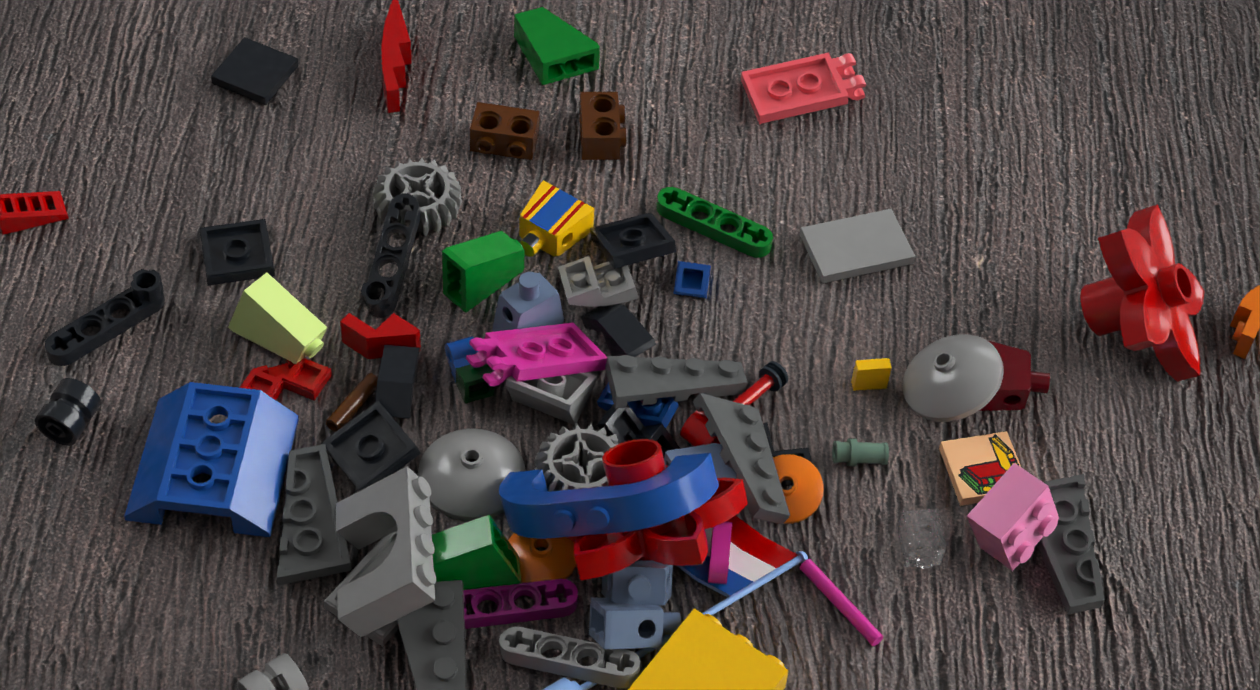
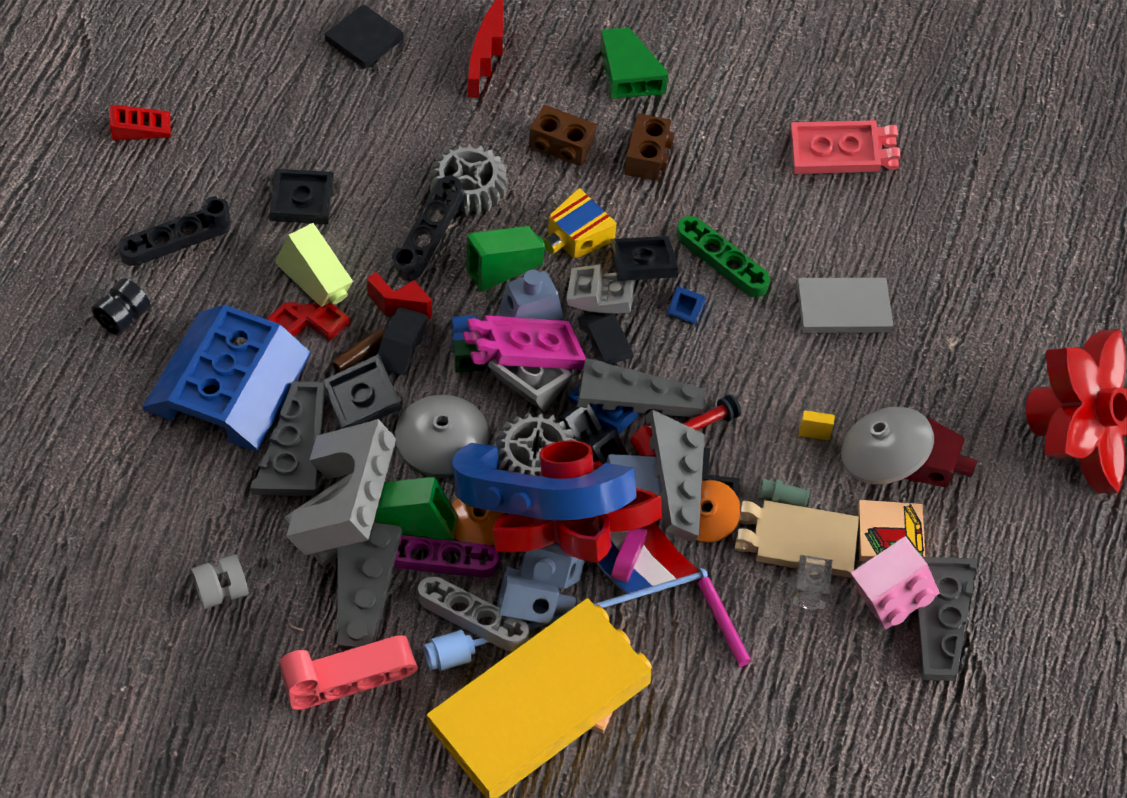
camera: 15 degrees right, 5 degrees up
(882, 490) = (792, 531): none -> tan tile

